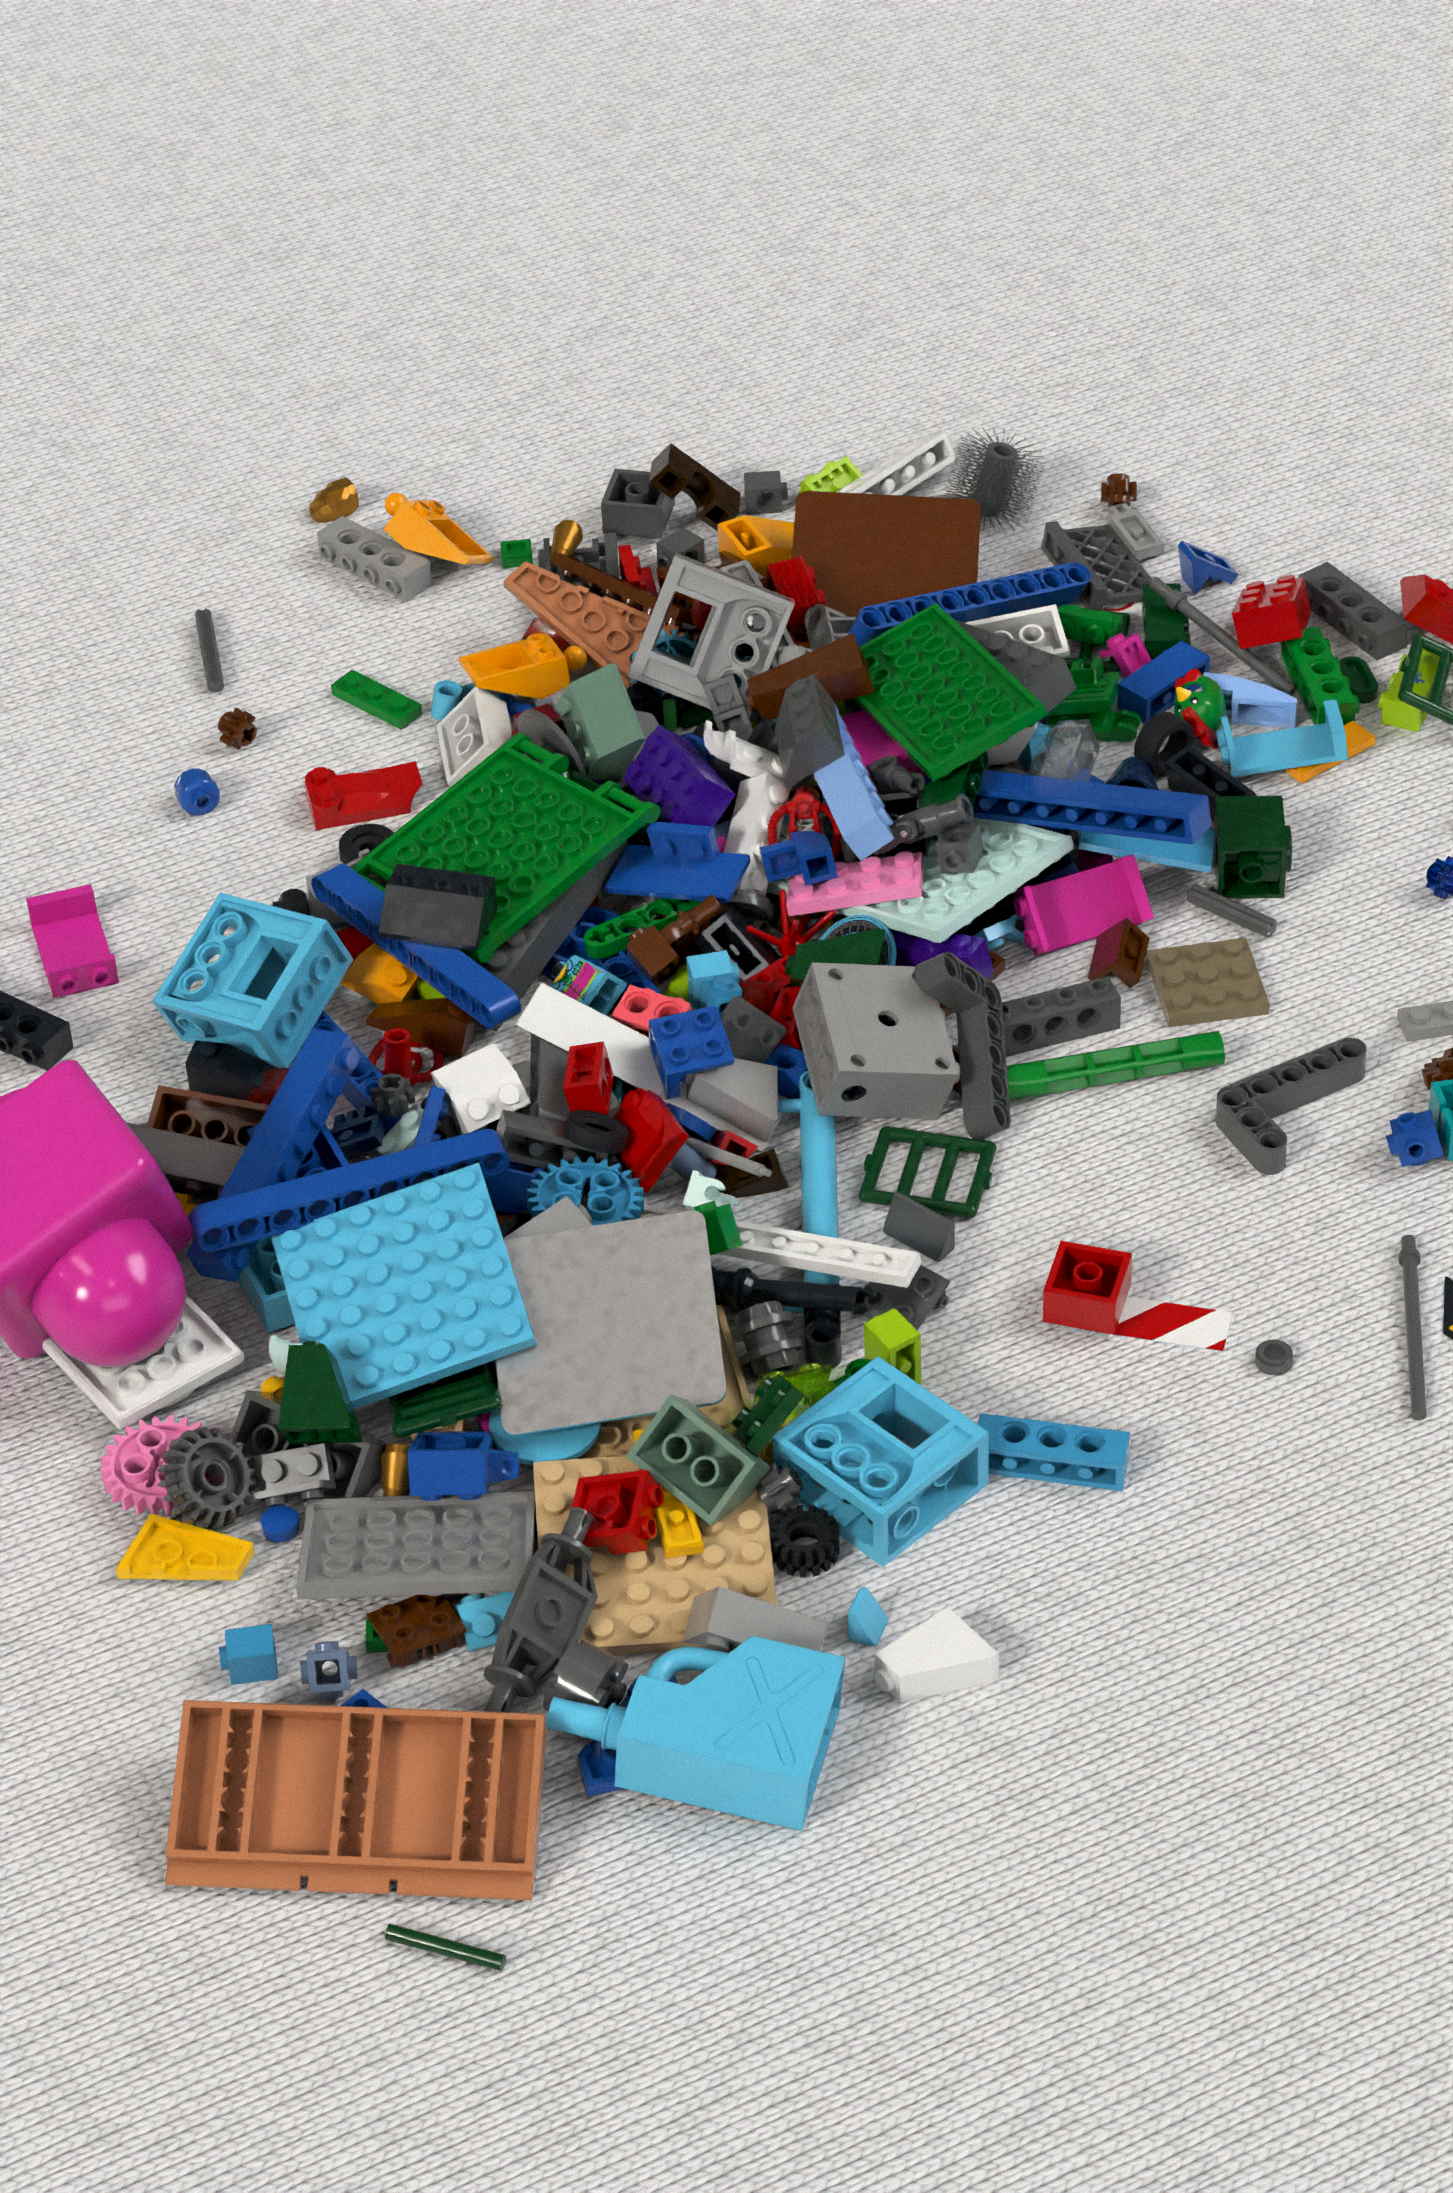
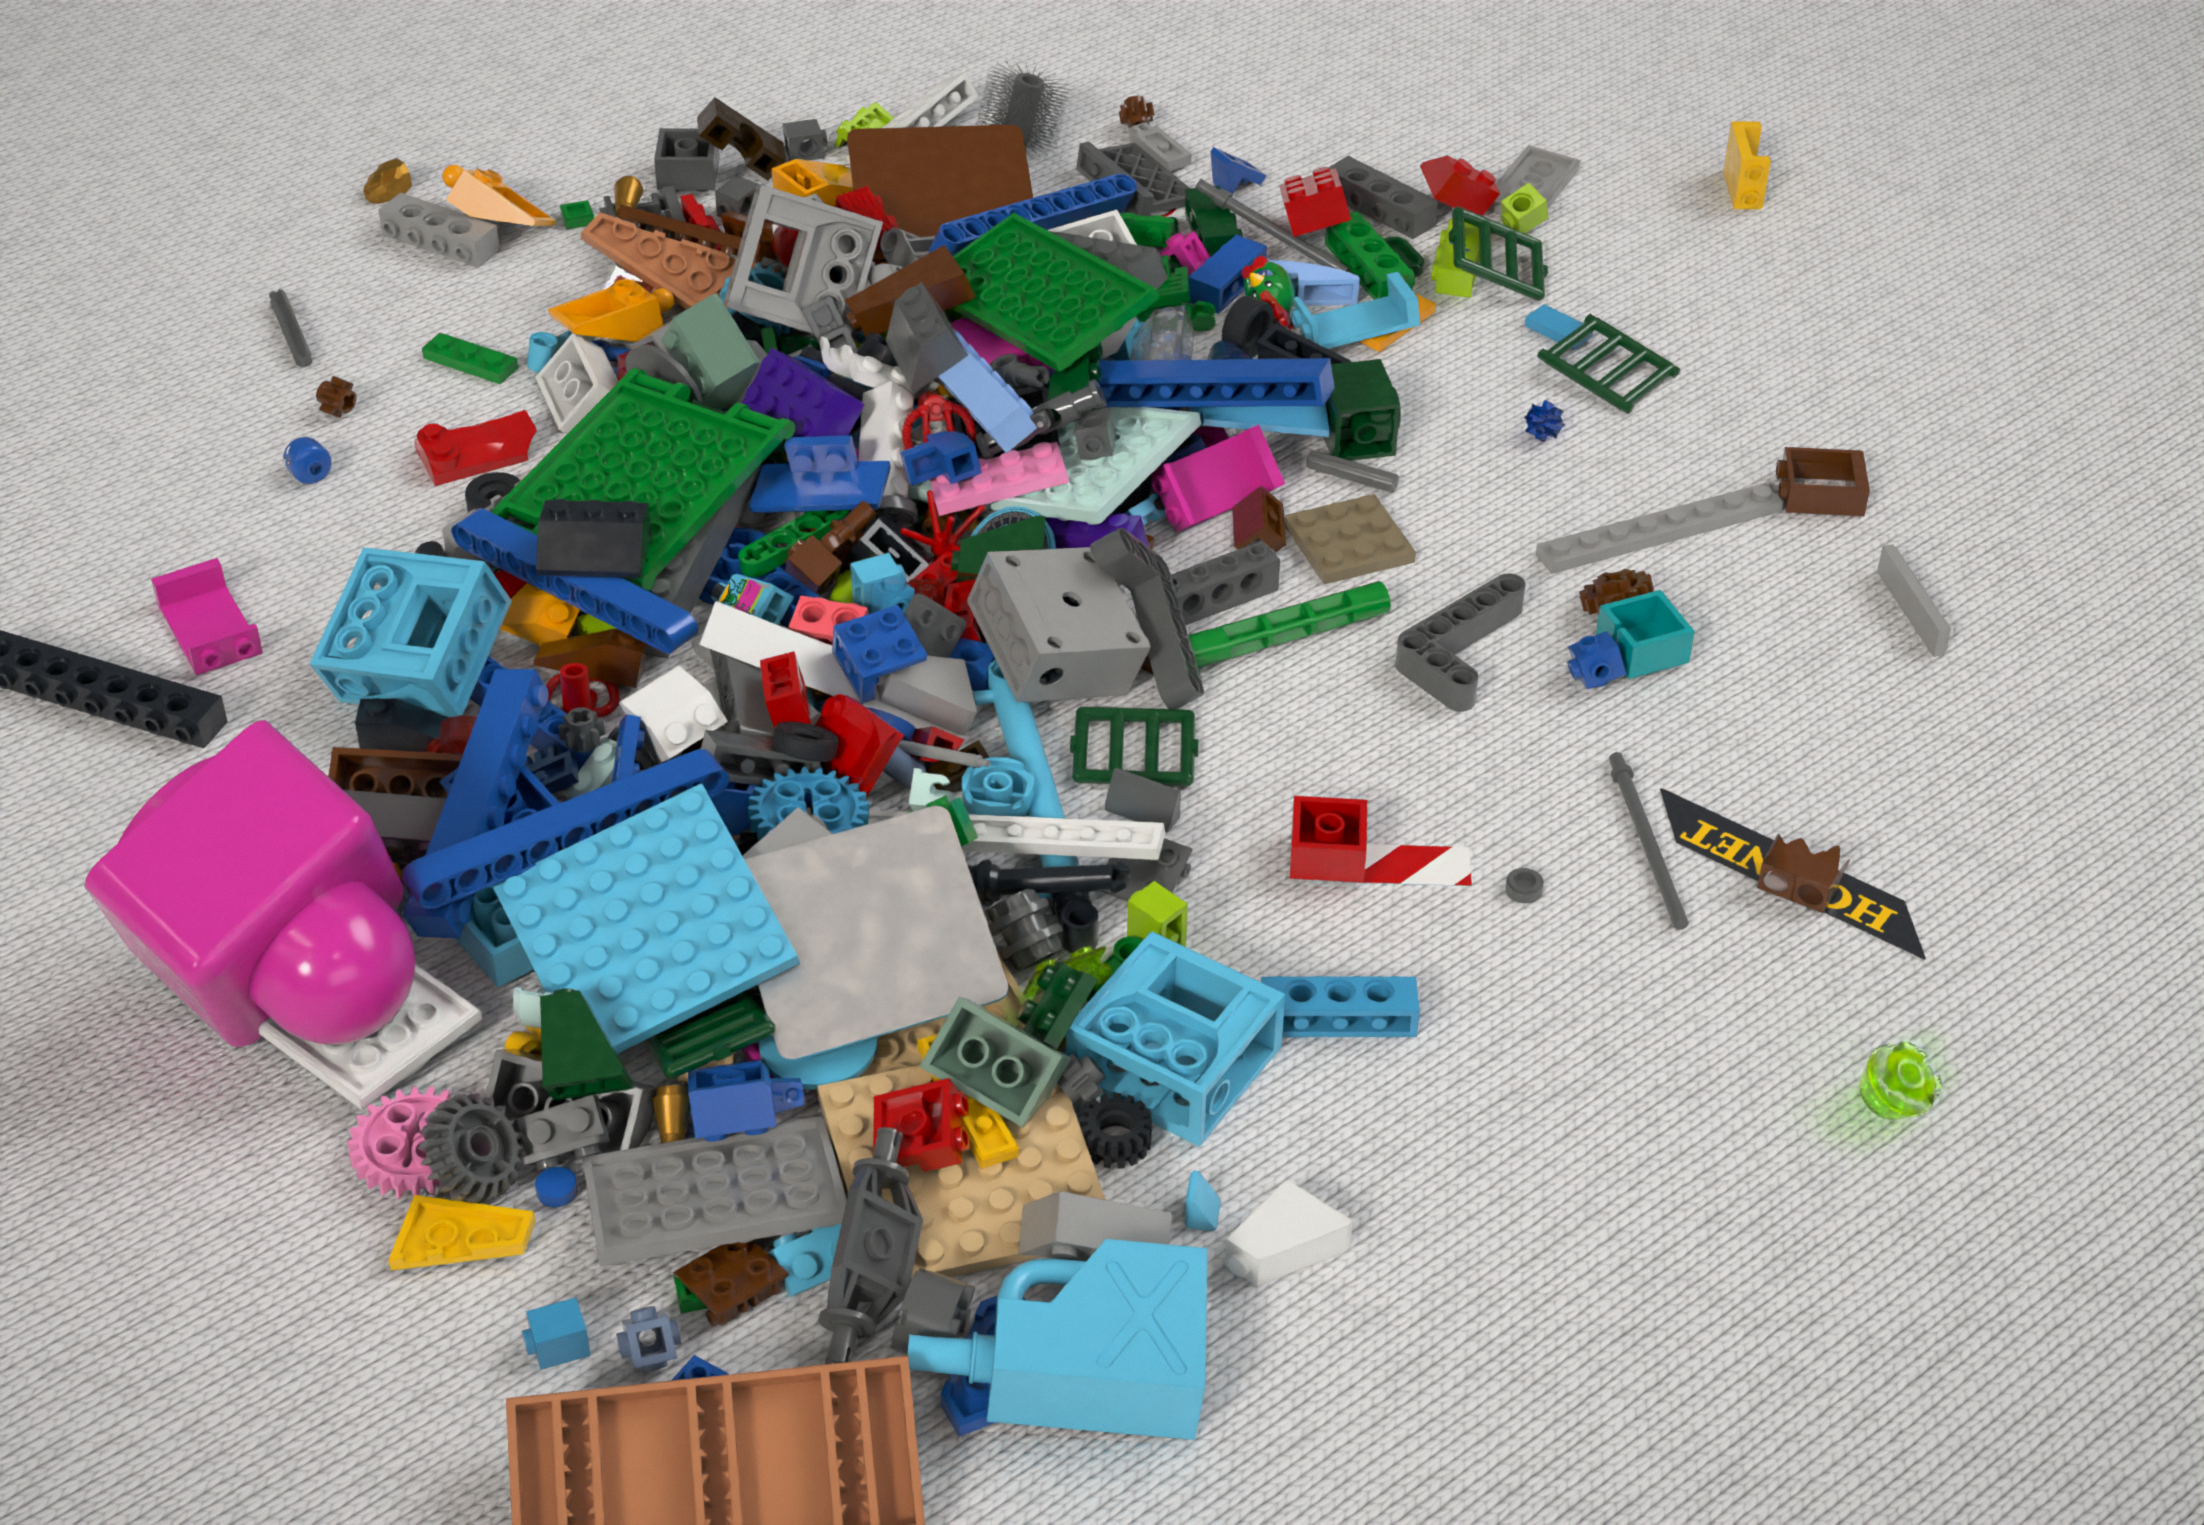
camera: 15 degrees left, 0 degrees up
(777, 1200) = (998, 789): none -> medium azure cylinder

